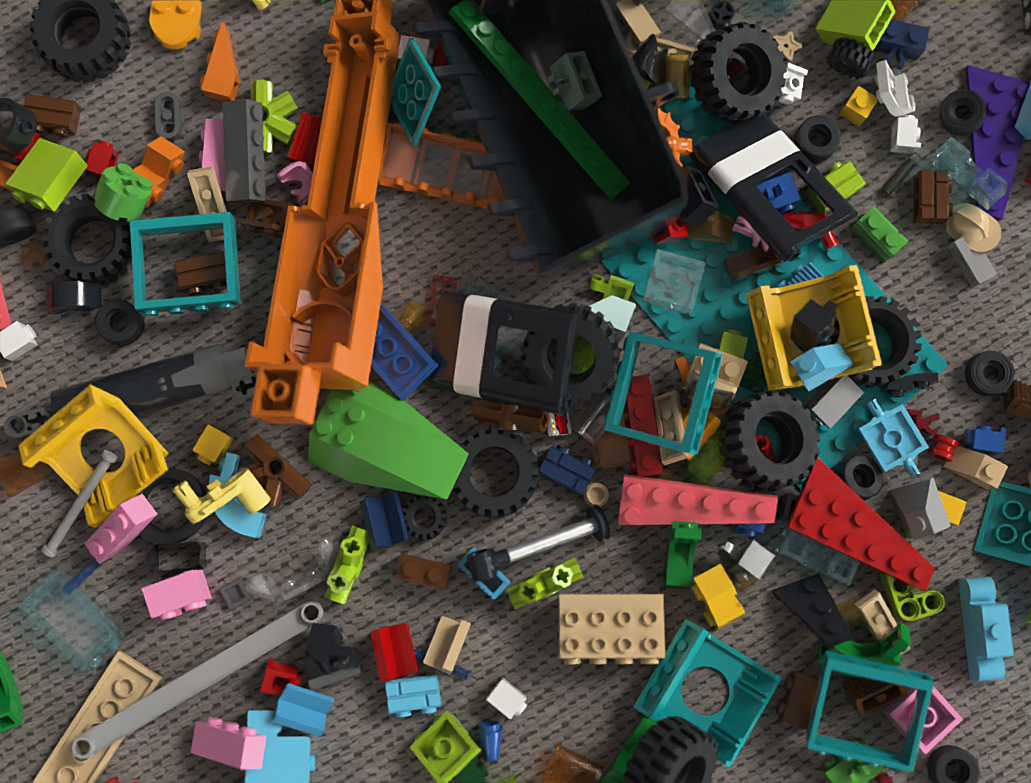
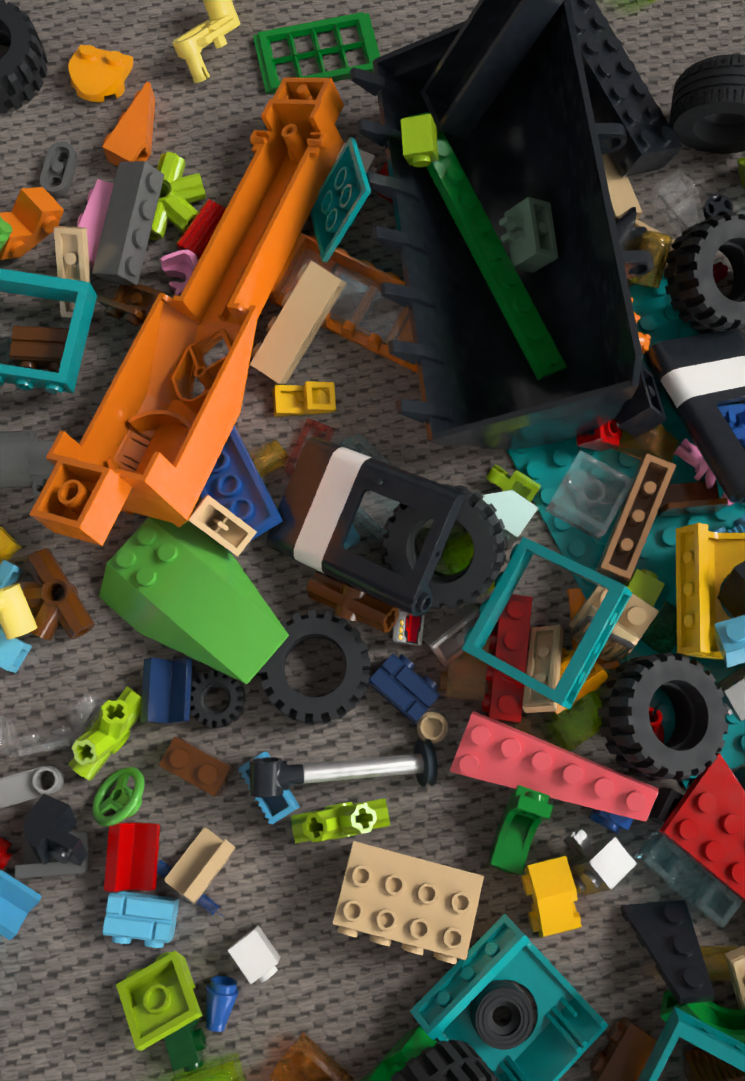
camera: 15 degrees right, 5 degrees down
(373, 610) = (122, 799): none -> bright green piece
(393, 381) = (222, 525): none -> tan slope
(406, 199) = (297, 323): none -> tan brick
(426, 260) = (305, 399): none -> yellow slope
(467, 29) = (419, 140): none -> lime brick
(713, 291) = (635, 518): none -> medium nougat brick
(714, 699) = (515, 1028): none -> black tyre

